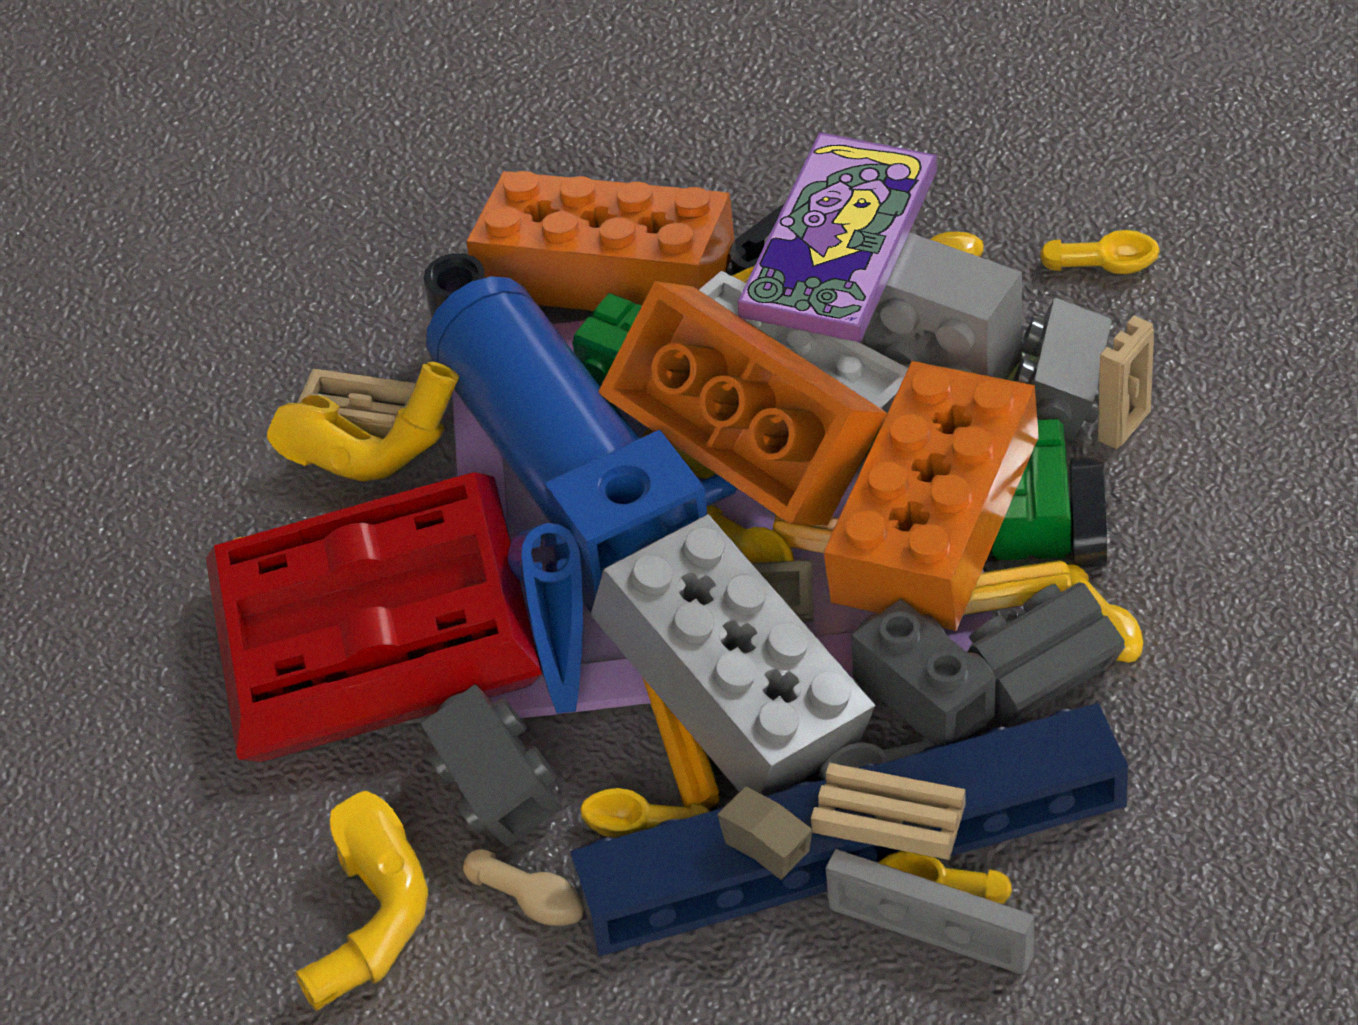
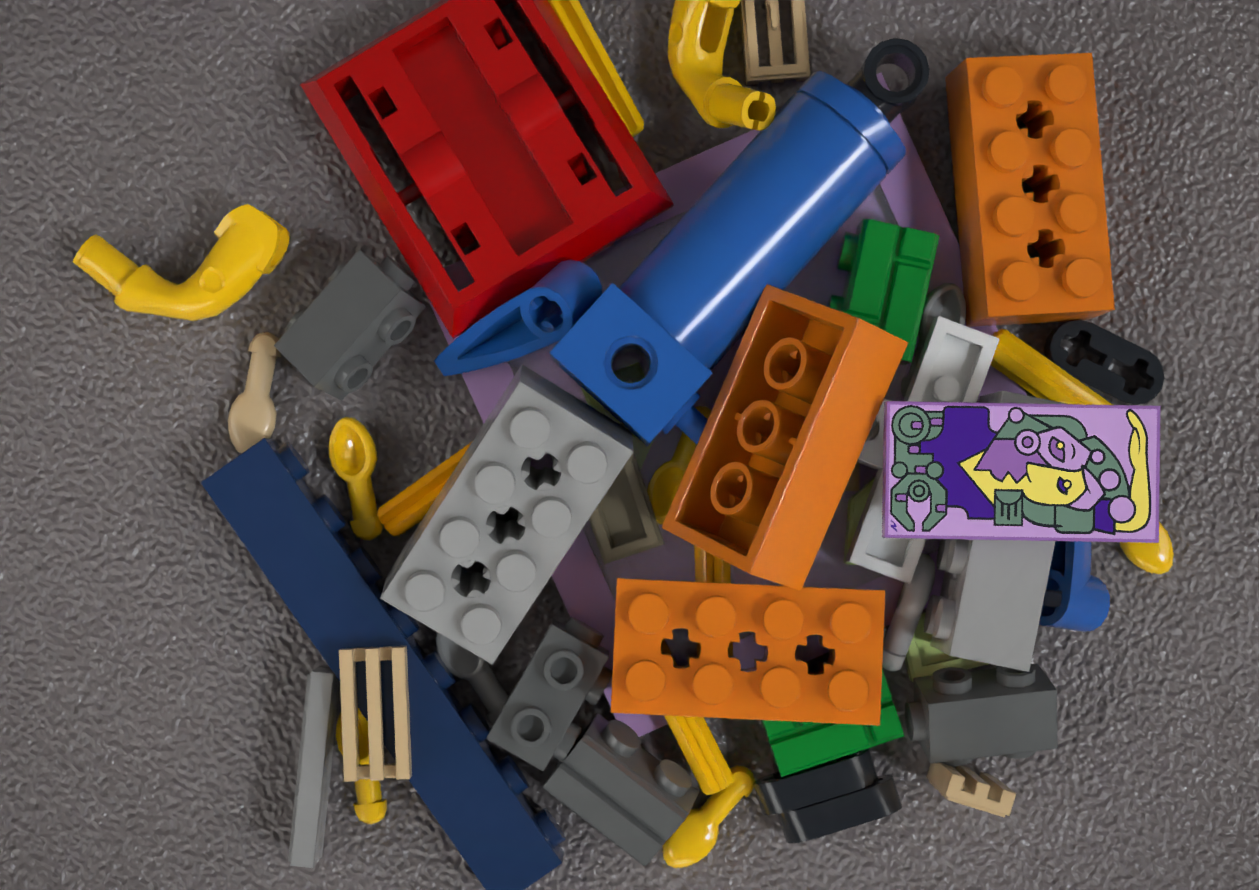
camera: 60 degrees right, 40 degrees up
(765, 831) = (312, 615): dark tan piece -> none
(1116, 252) = (1183, 713): yellow piece -> none
(1122, 501) = (841, 812): none -> black beam

